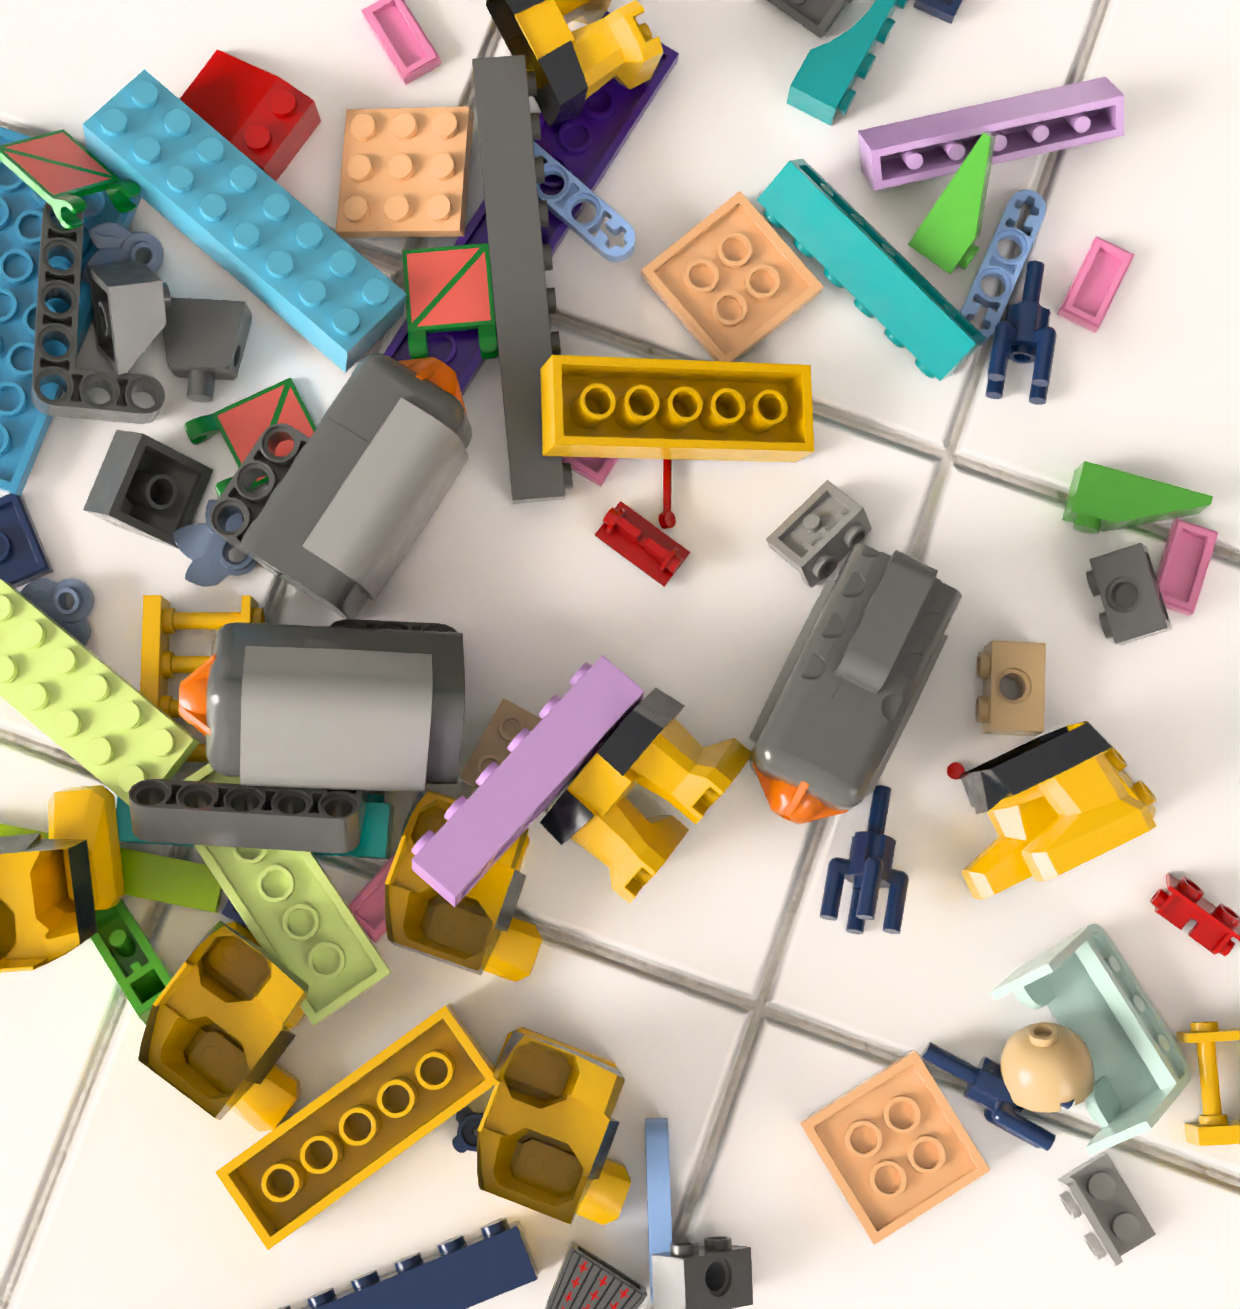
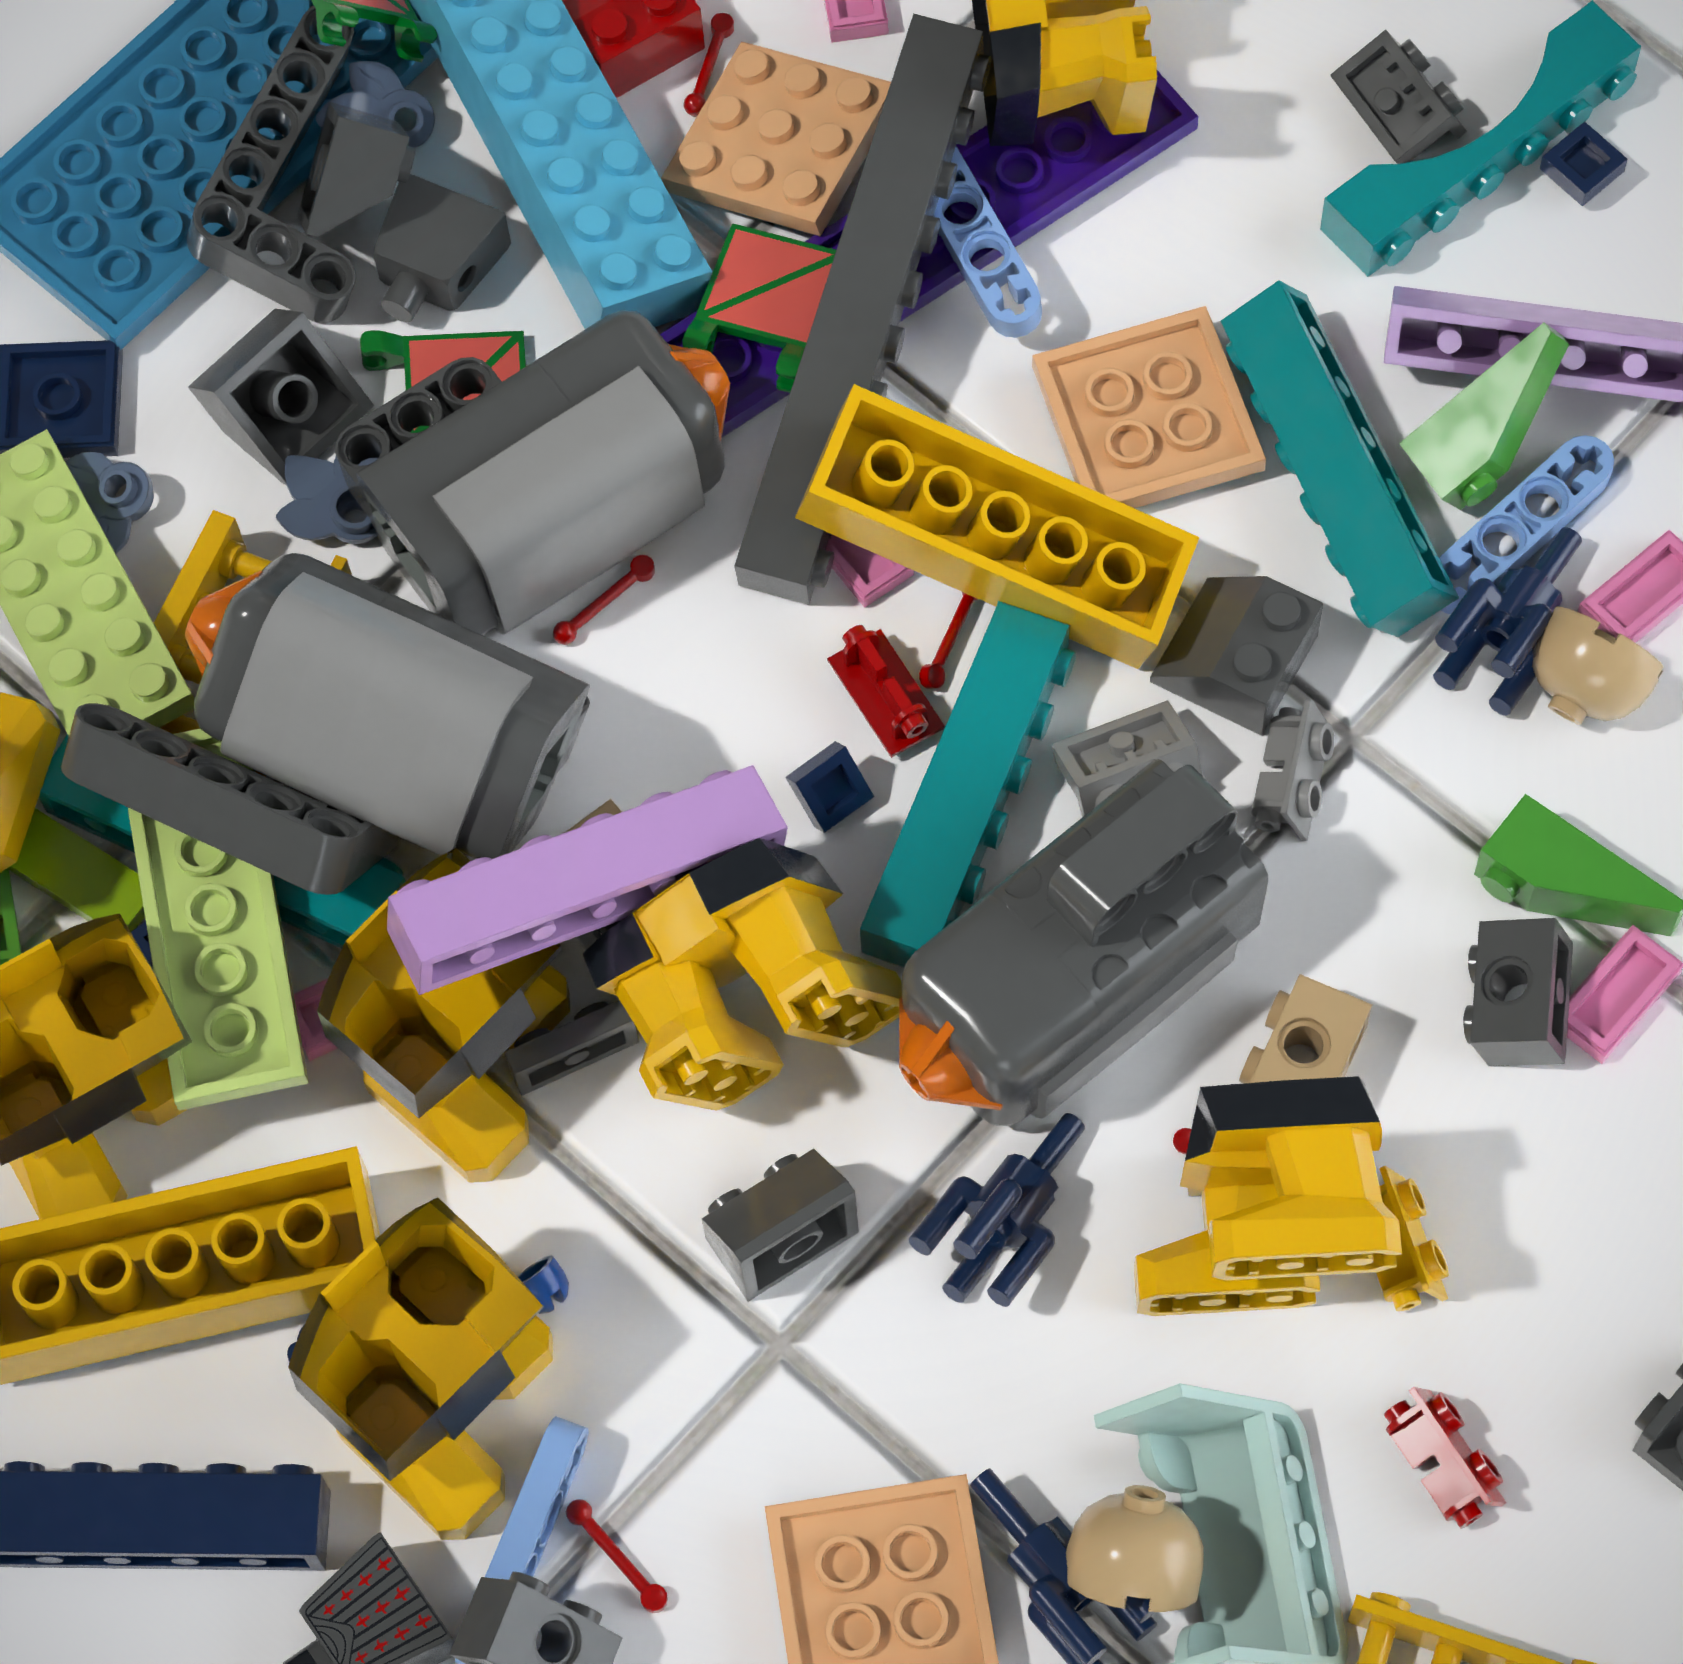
camera: 30 degrees right, 15 degrees down
(326, 102) = (722, 27): none -> red hinge
(444, 518) = (641, 570): none -> red hinge
(555, 858) = (550, 1055): none -> dark grey plate
(594, 1034) = (544, 1280): none -> blue hinge
(636, 625) = (829, 786): none -> dark blue plate
(725, 591) = (968, 783): none -> teal brick
(731, 934) = (781, 1221): none -> dark grey slope
(750, 1203) = (652, 1596): none -> red hinge
(858, 424) = (1240, 648): none -> dark grey slope
(931, 512) = (1301, 745): none -> light grey hinge
(1091, 358) = (1592, 670): none -> tan cylinder

